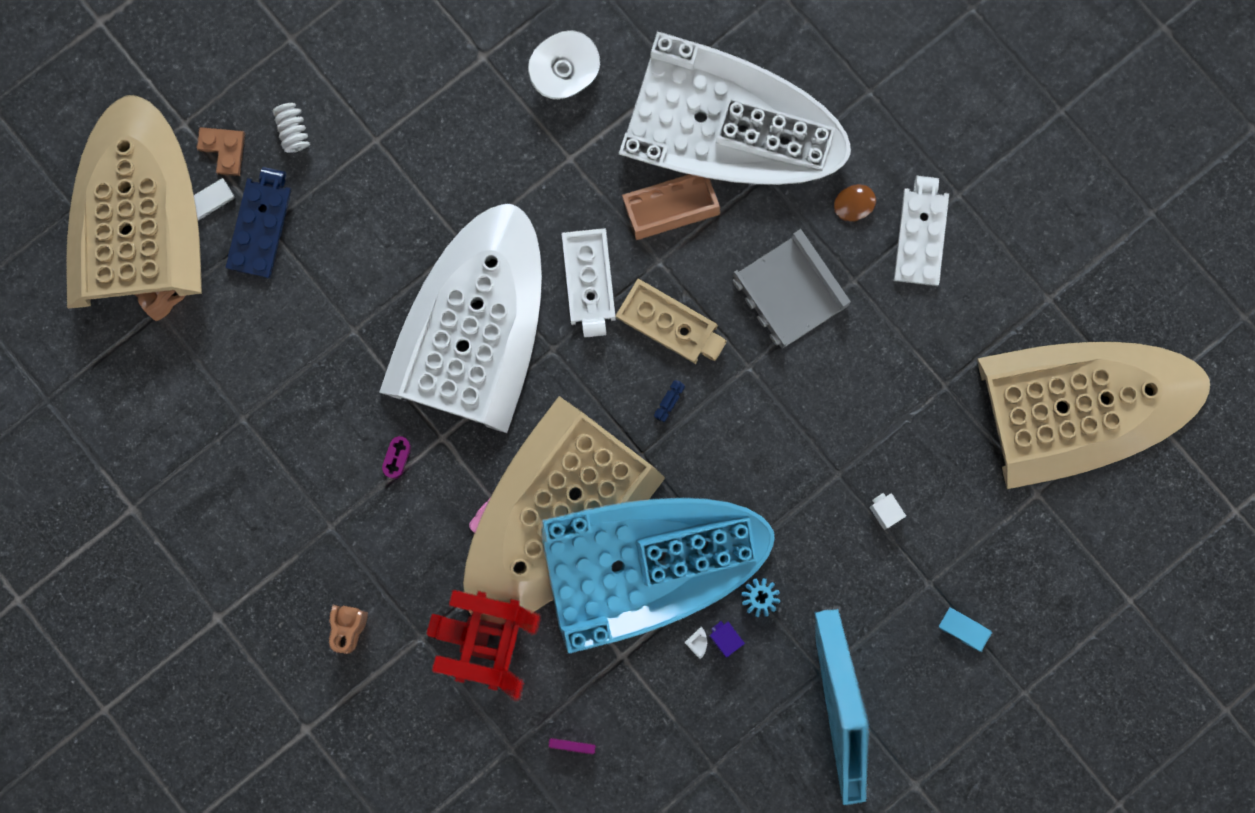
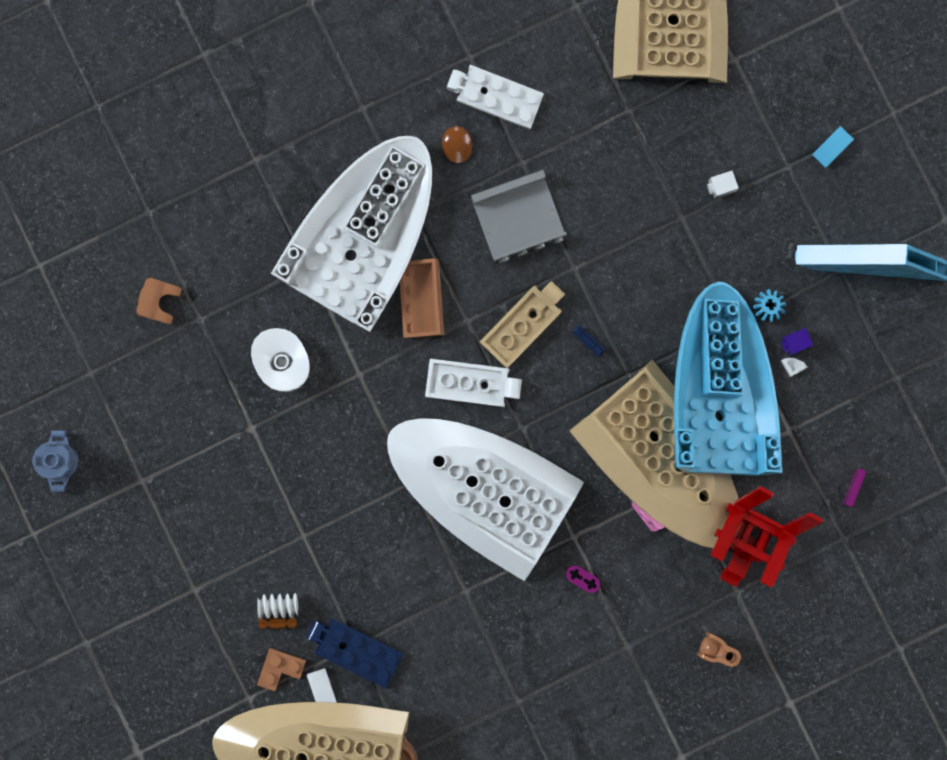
camera: 75 degrees left, 5 degrees up
(273, 134) = (273, 623): none -> dark orange axle

